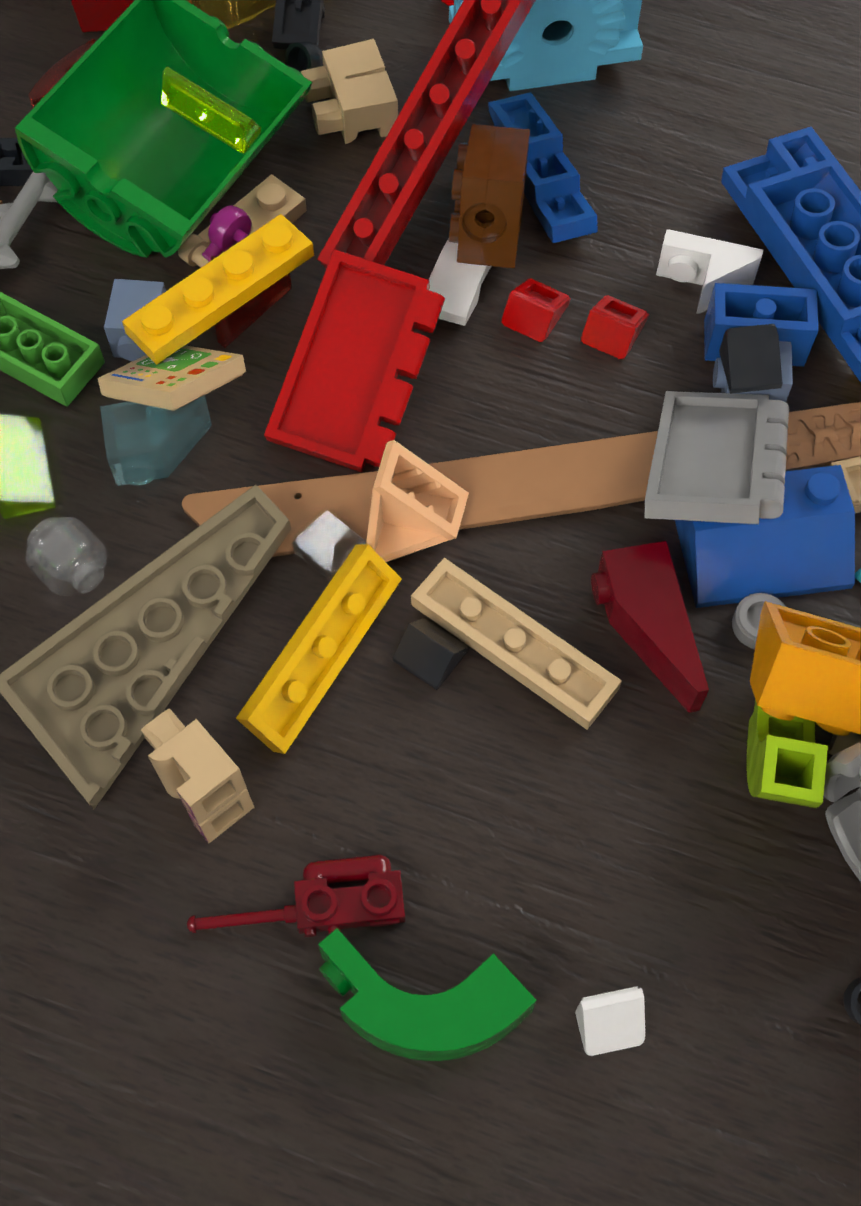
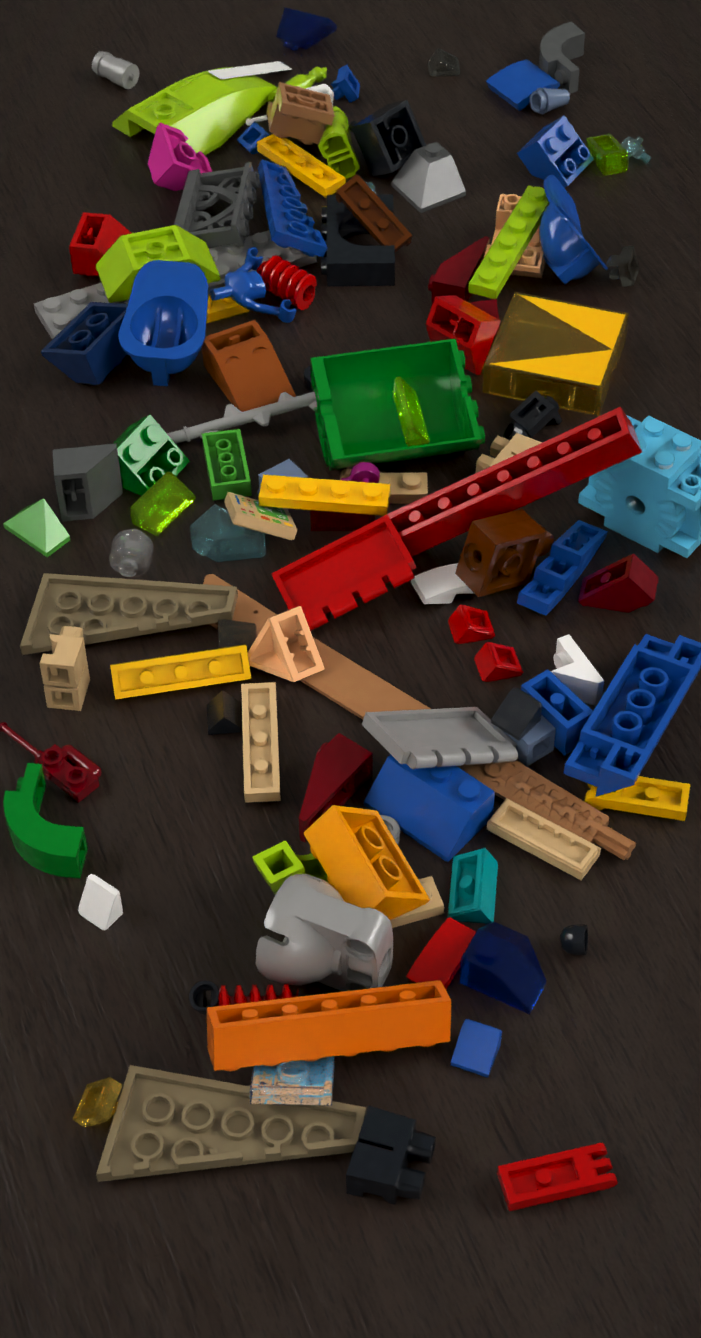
camera: 50 degrees right, 15 degrees down
(625, 140) = (620, 586): none -> dark red slope

